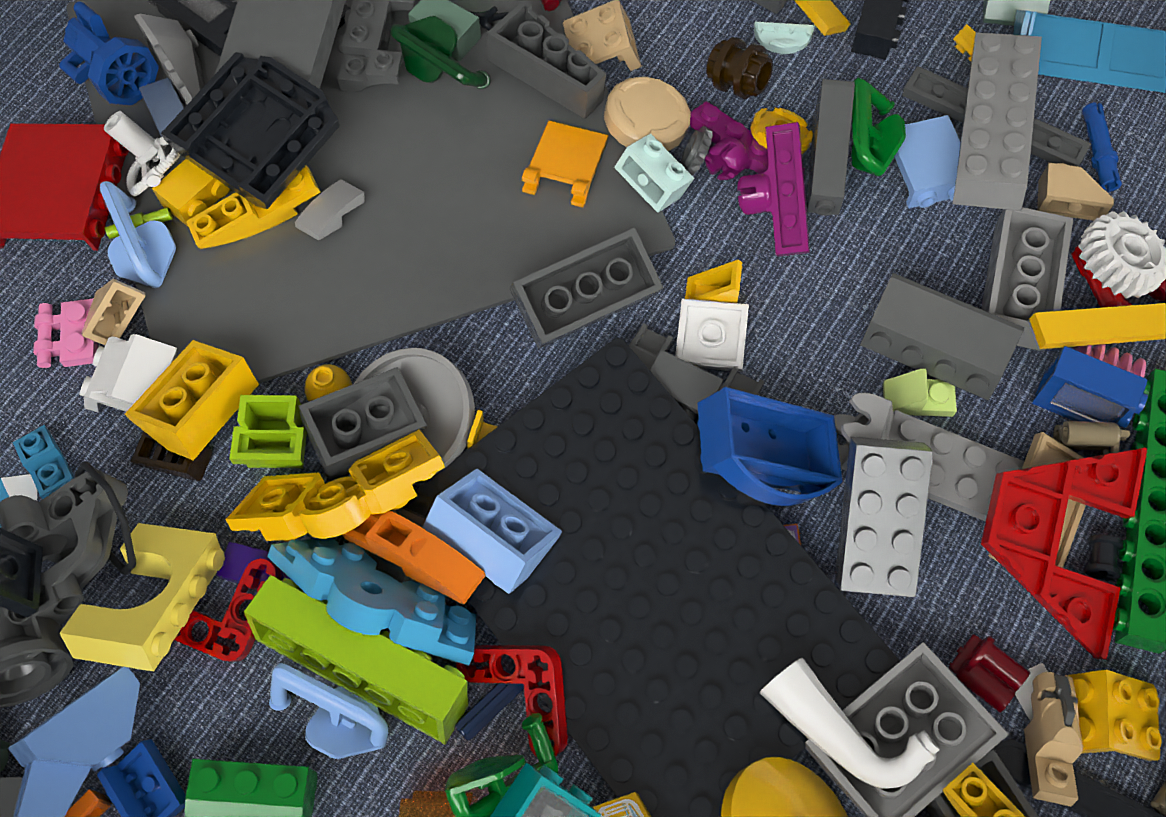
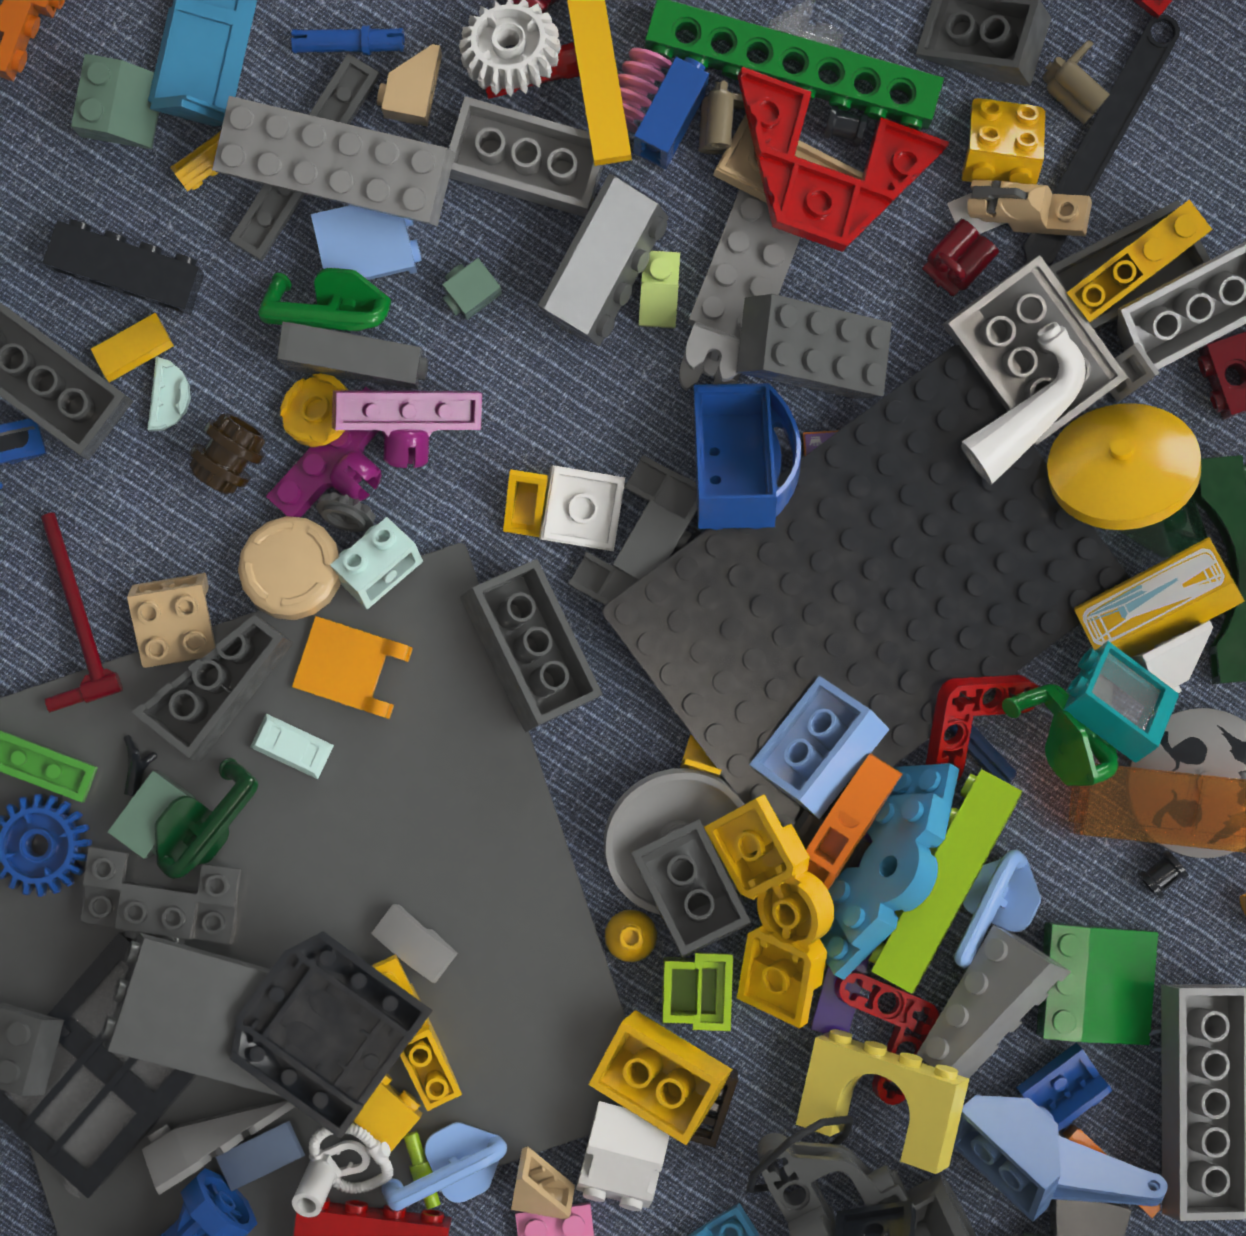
camera: 95 degrees left, 20 degrees up
(235, 703) = (990, 1001): none -> light grey wedge
(499, 123) = (291, 746): none -> light aqua tile
(899, 241) = (470, 289): none -> sand green brick

